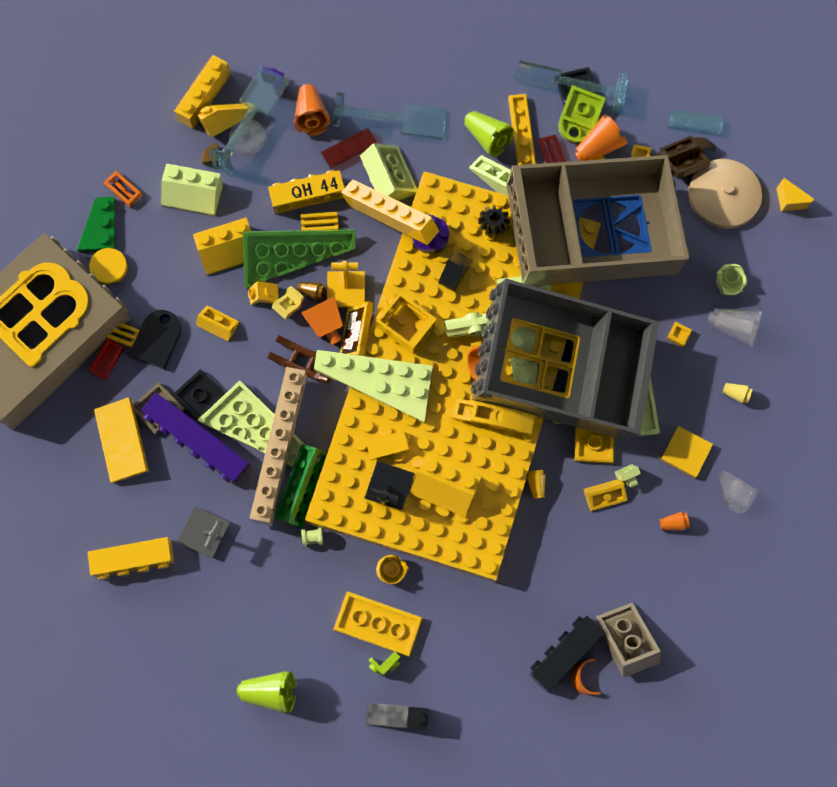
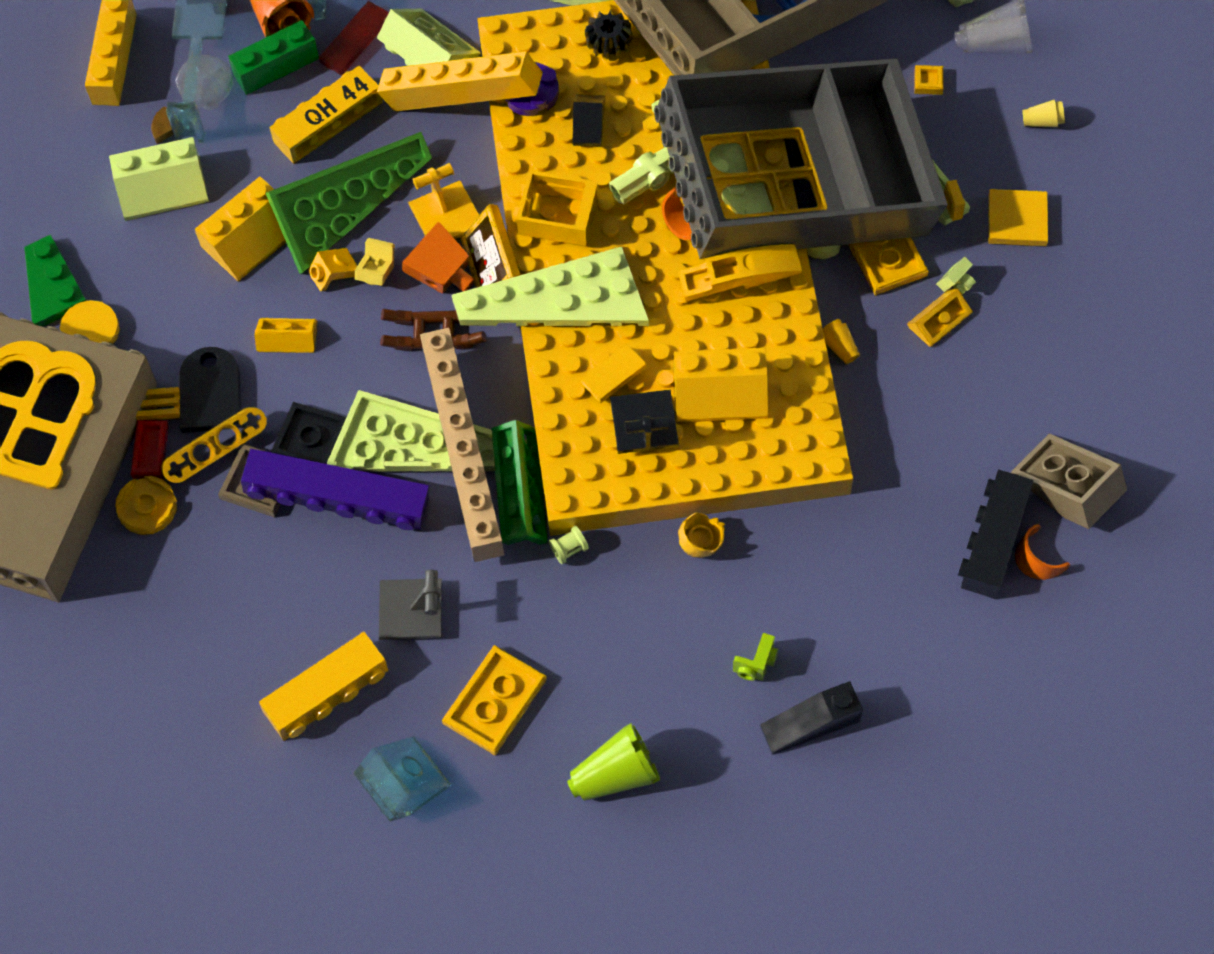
camera: 20 degrees left, 10 degrees down
(87, 393) = (146, 505): none -> yellow tile
(121, 440) = (228, 542): yellow tile -> none
(132, 198) = (55, 225): orange tile -> none
(142, 379) = (211, 440): none -> yellow beam
(147, 635) = (401, 777): none -> clear light blue slope
(221, 117) = (152, 72): yellow slope -> none
(223, 612) = (494, 700): none -> yellow tile
(293, 140) = (273, 57): none -> green brick
(312, 289) = (400, 233): pearl gold cone -> none
(314, 221) = (362, 142): yellow tile -> none
(378, 624) = (719, 616): yellow tile -> none
(650, 426) = (954, 200): none -> yellow tile
(675, 522) = (1051, 307): orange cone -> none
(736, 492) = (1109, 235): clear slope -> none

